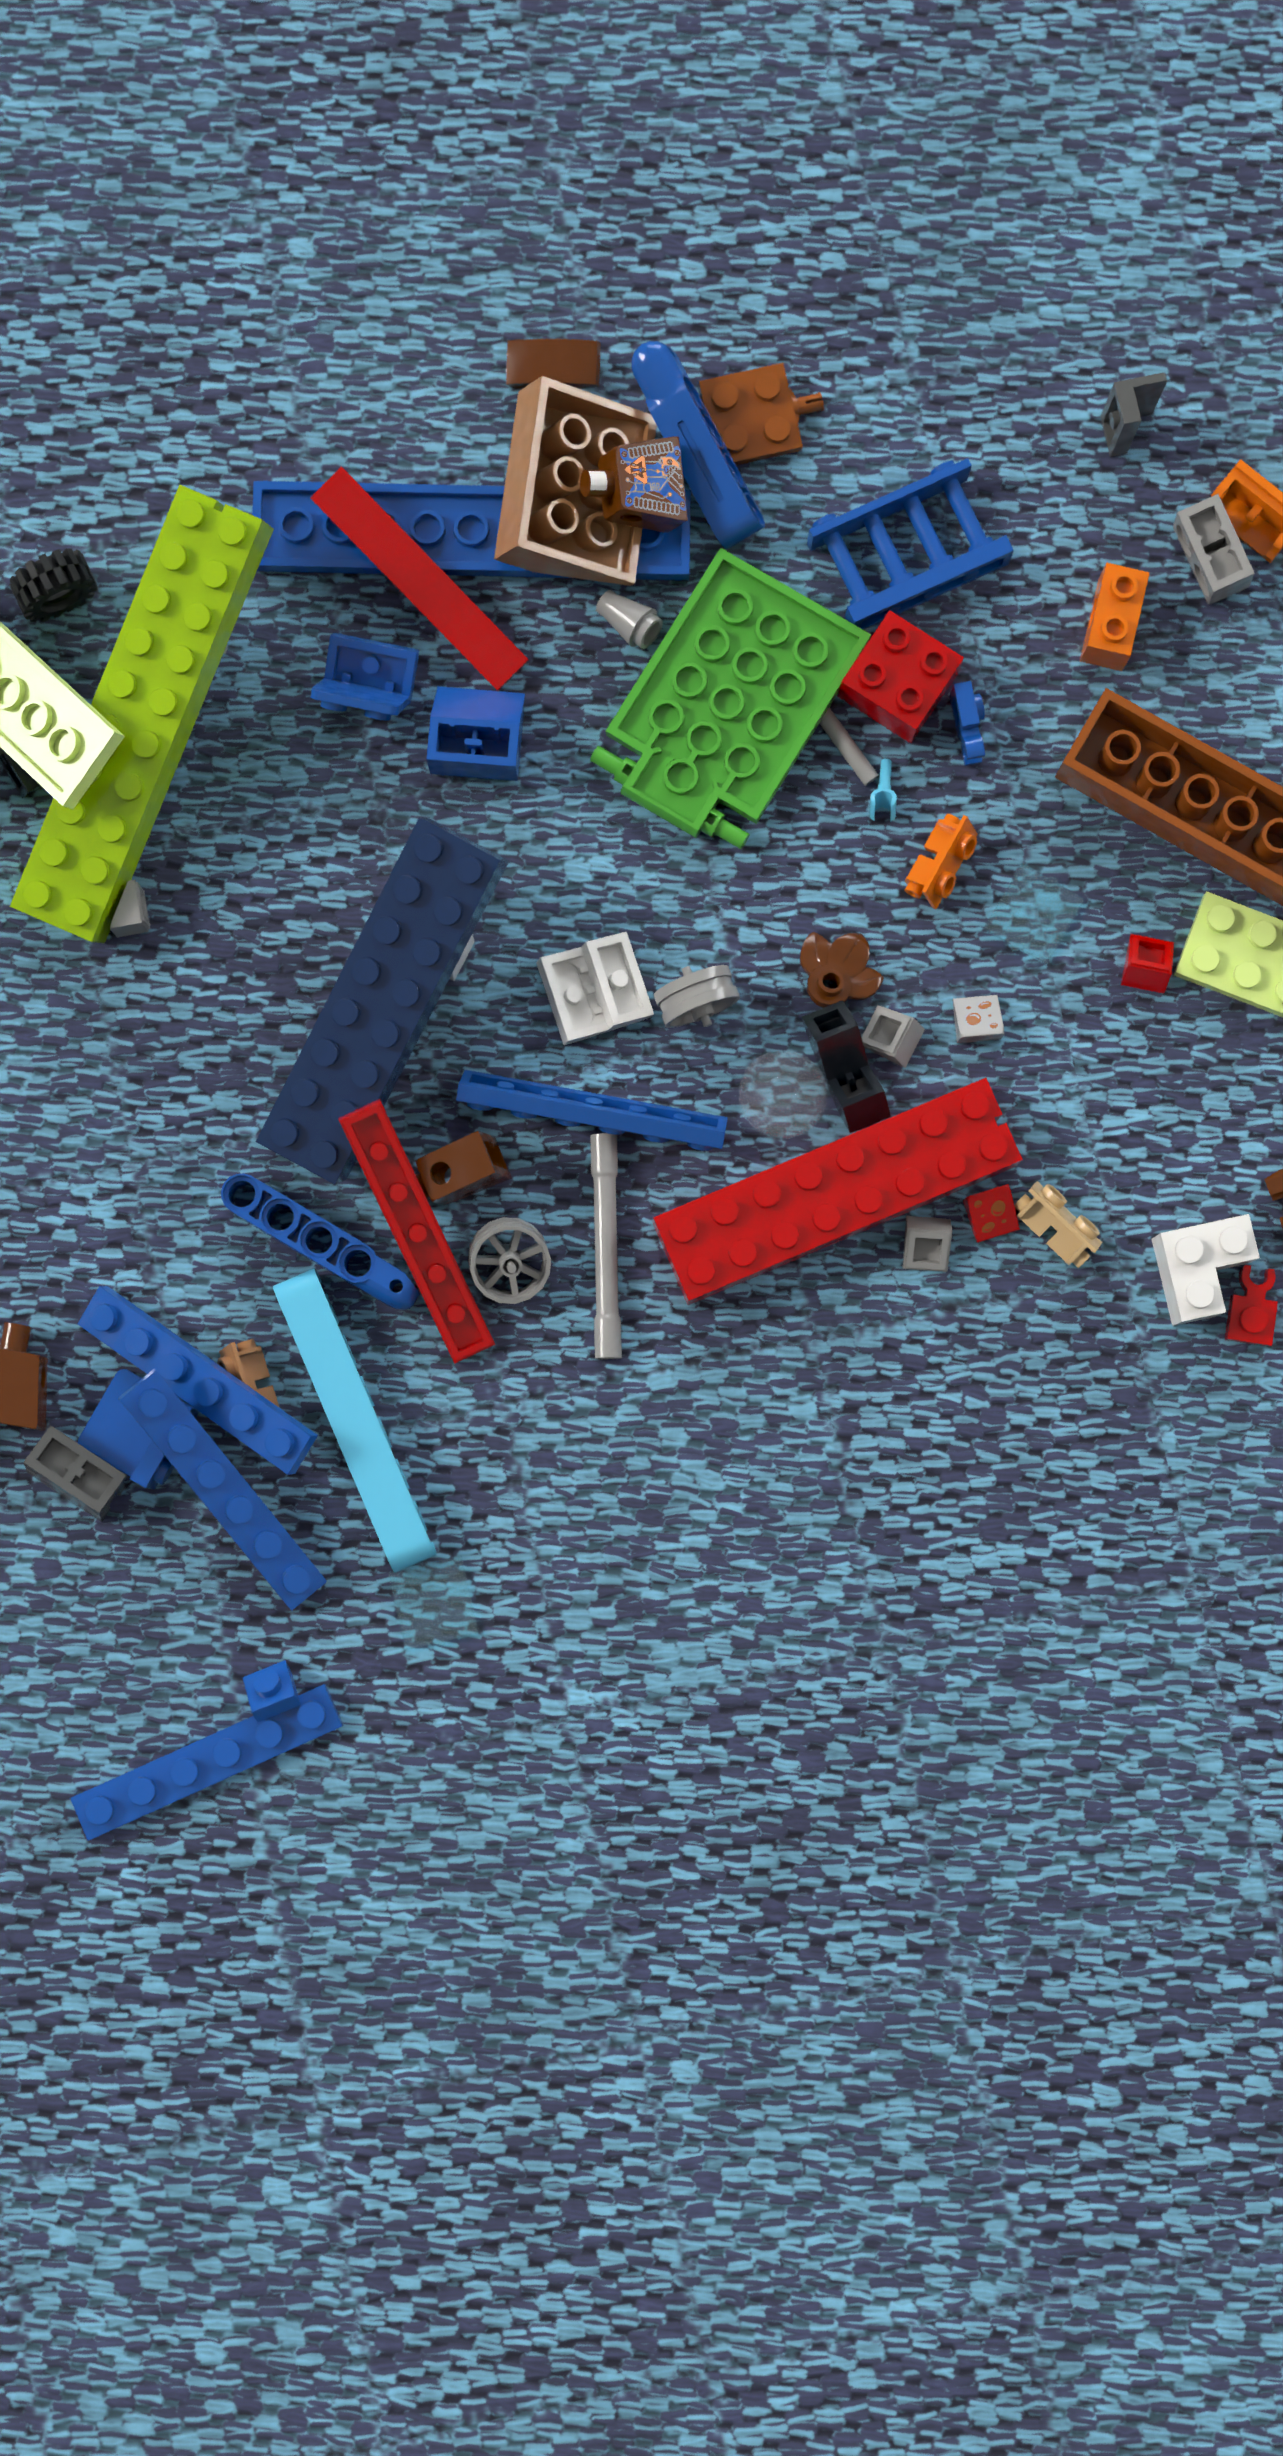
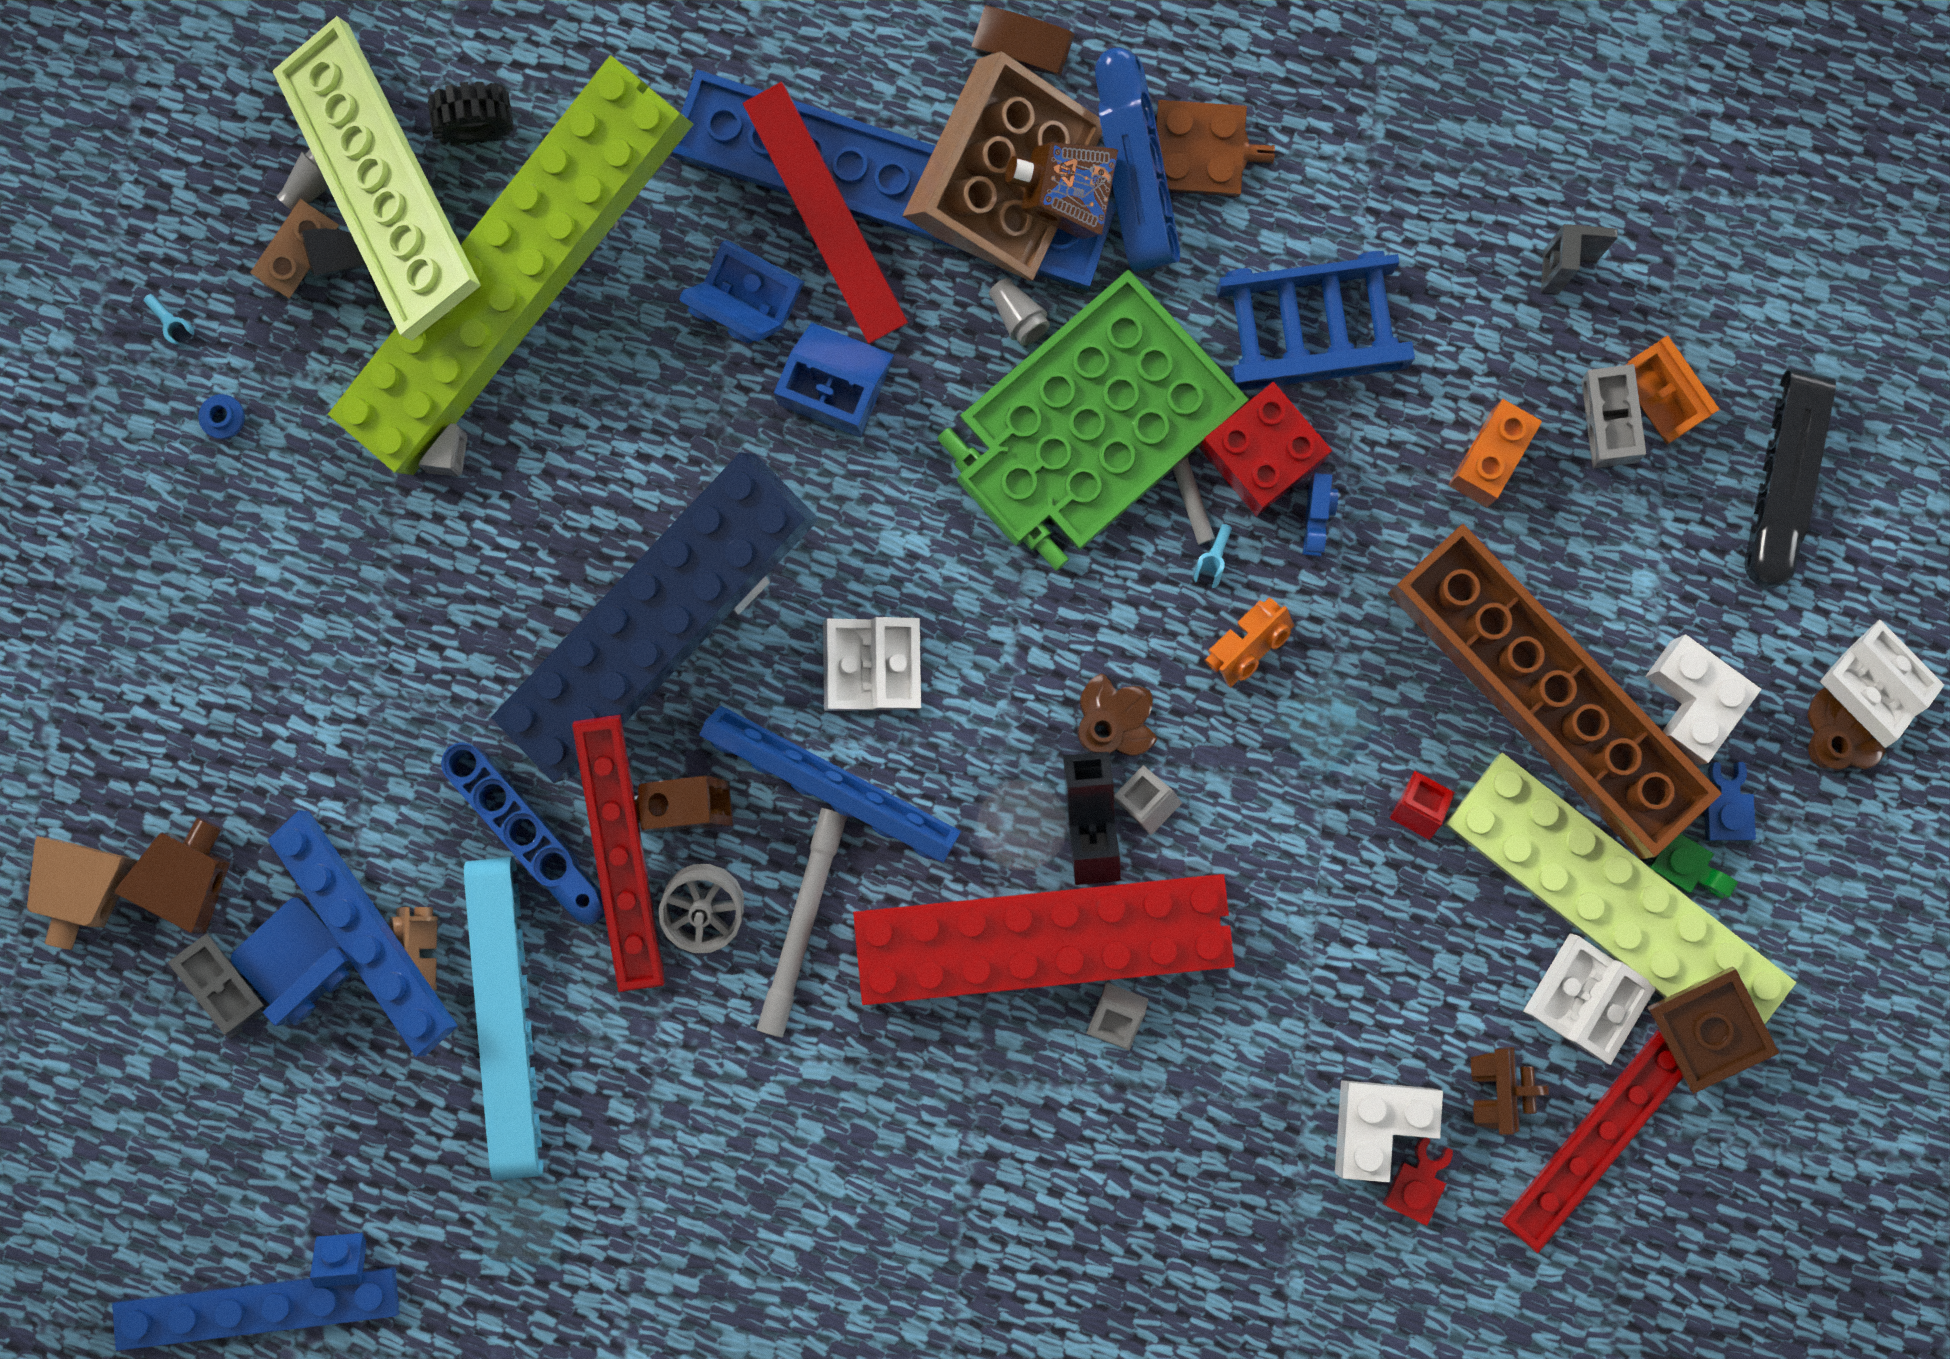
camera: 20 degrees right, 0 degrees up
(222, 1489) = (349, 1049): blue plate -> none
(696, 996) = (965, 704): light grey wheel -> none
(978, 1019) = (1237, 809): slope -> none
(991, 1213) = (1190, 1007): red slope -> none
(1072, 1233) = (1247, 1021): tan hinge -> none

